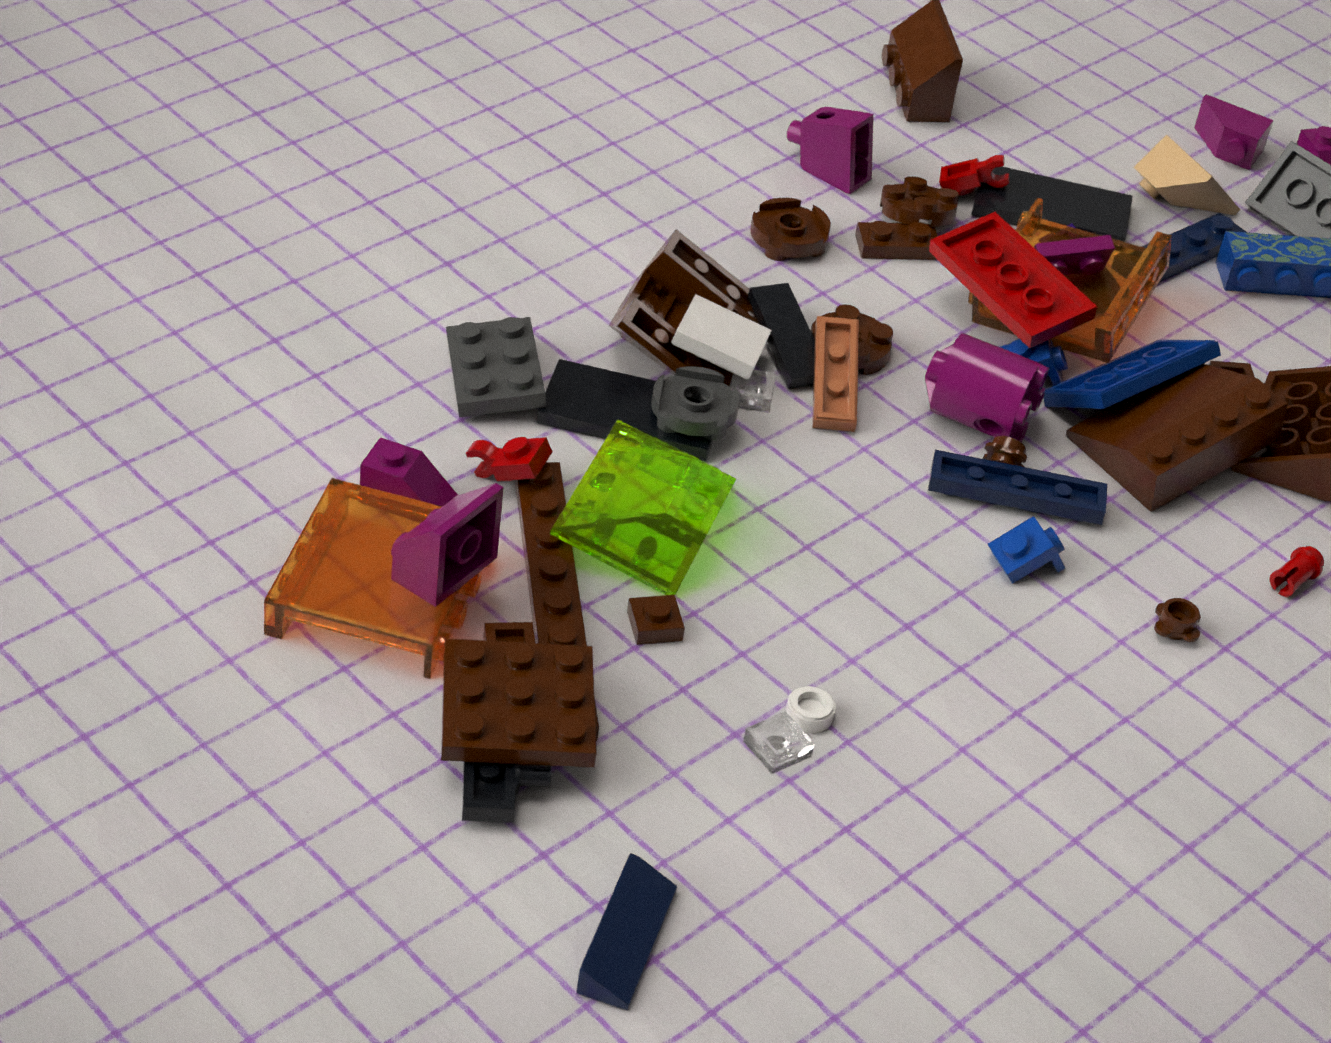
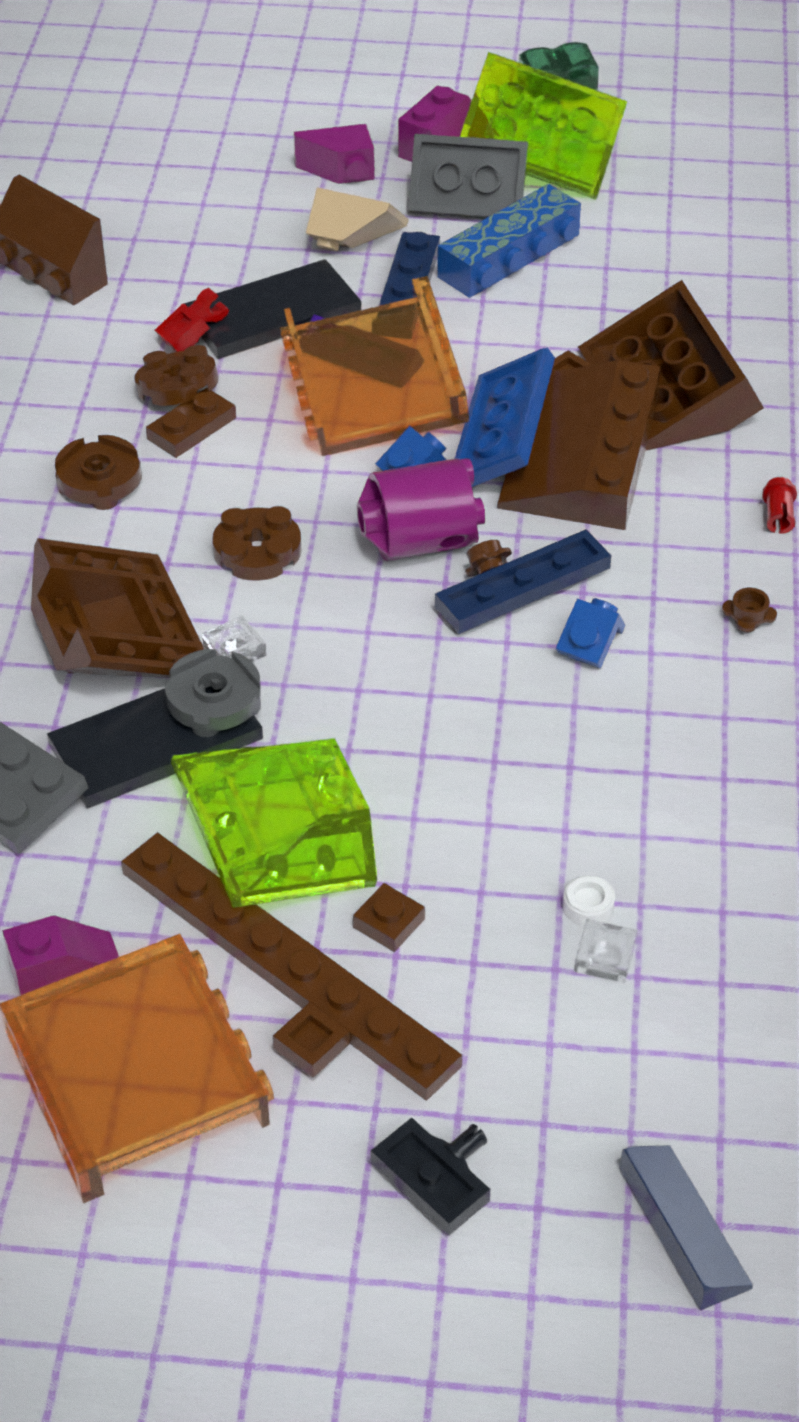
camera: 35 degrees left, 5 degrees up
(449, 545) = (190, 988): magenta slope -> none
(517, 459) = (126, 861): red plate -> none
(518, 703) = (390, 1089): reddish brown plate -> none
(721, 337) = (170, 613): white tile -> none
(789, 335) = (208, 572): black tile -> none
(835, 146) = (58, 367): magenta torso -> none
(835, 374) = (286, 580): nougat tile -> none
(1012, 279) = (345, 397): red plate -> none
(1078, 255) = (356, 354): magenta plate -> none

